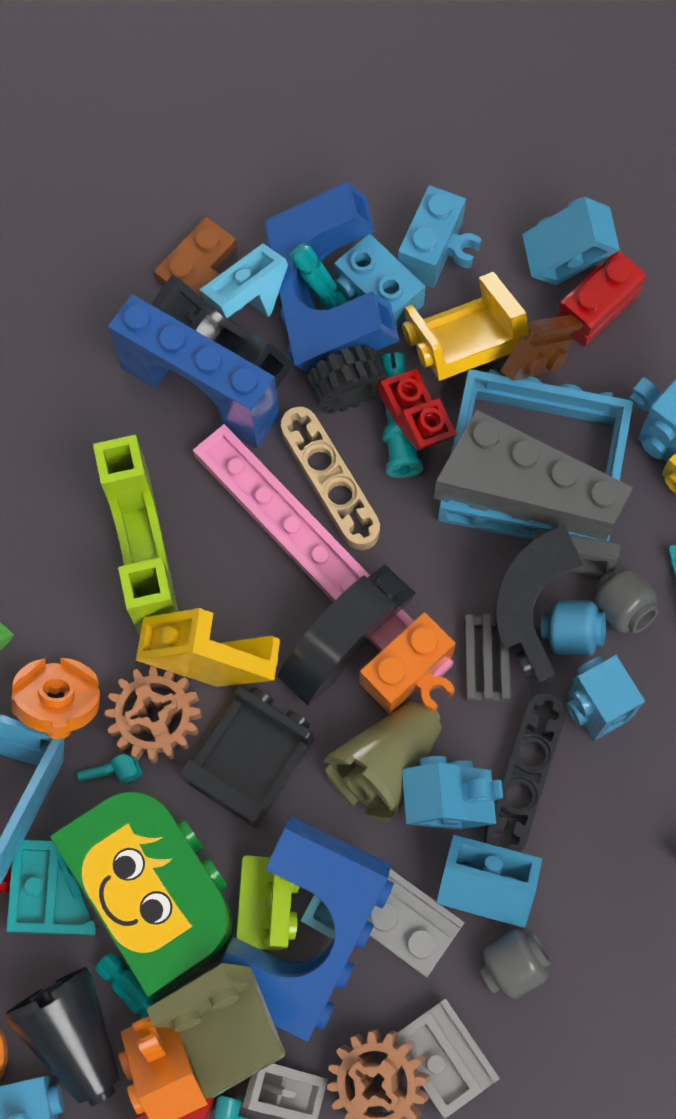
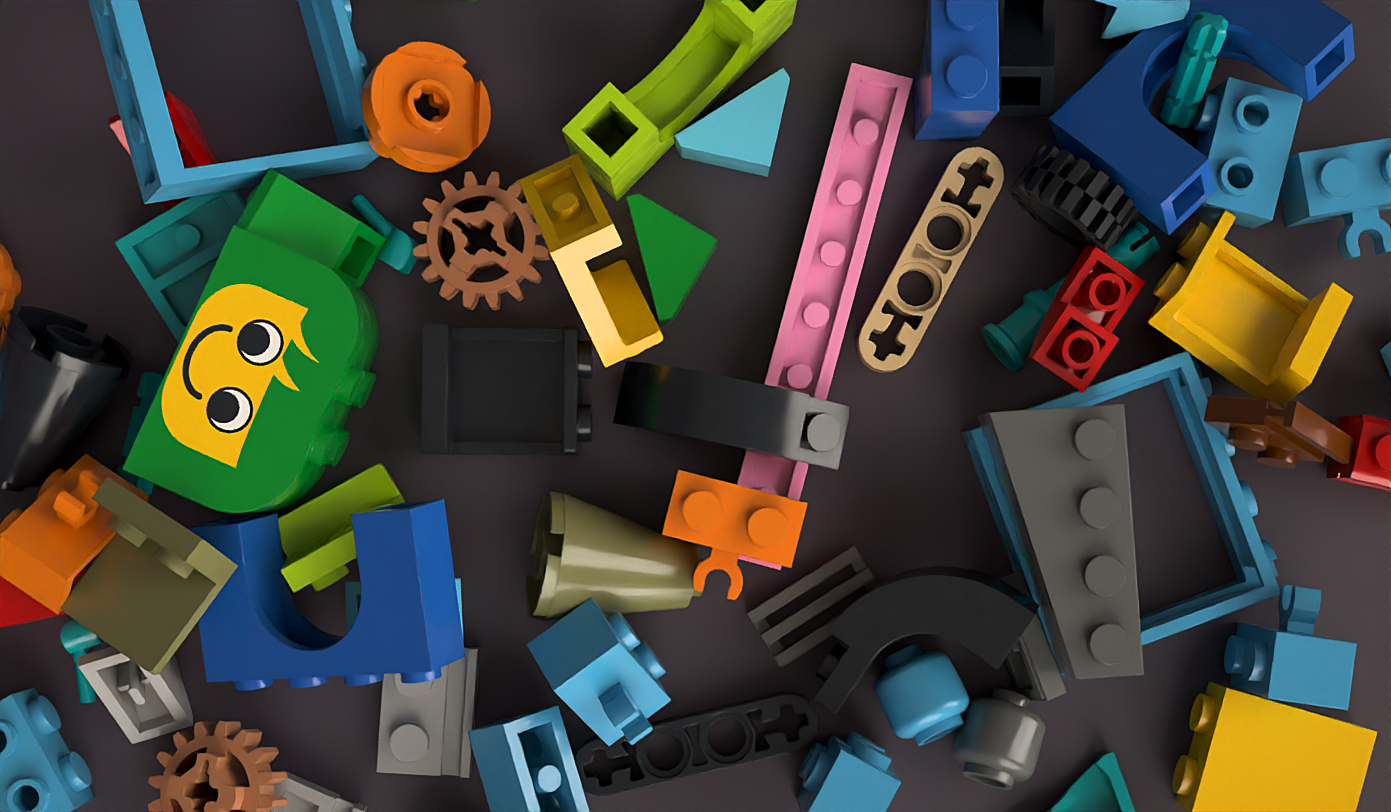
camera: 55 degrees right, 15 degrees up
(74, 797) = (311, 227): none -> green slope
(191, 532) = (741, 131): none -> medium azure slope
(233, 612) = (671, 253): none -> green slope

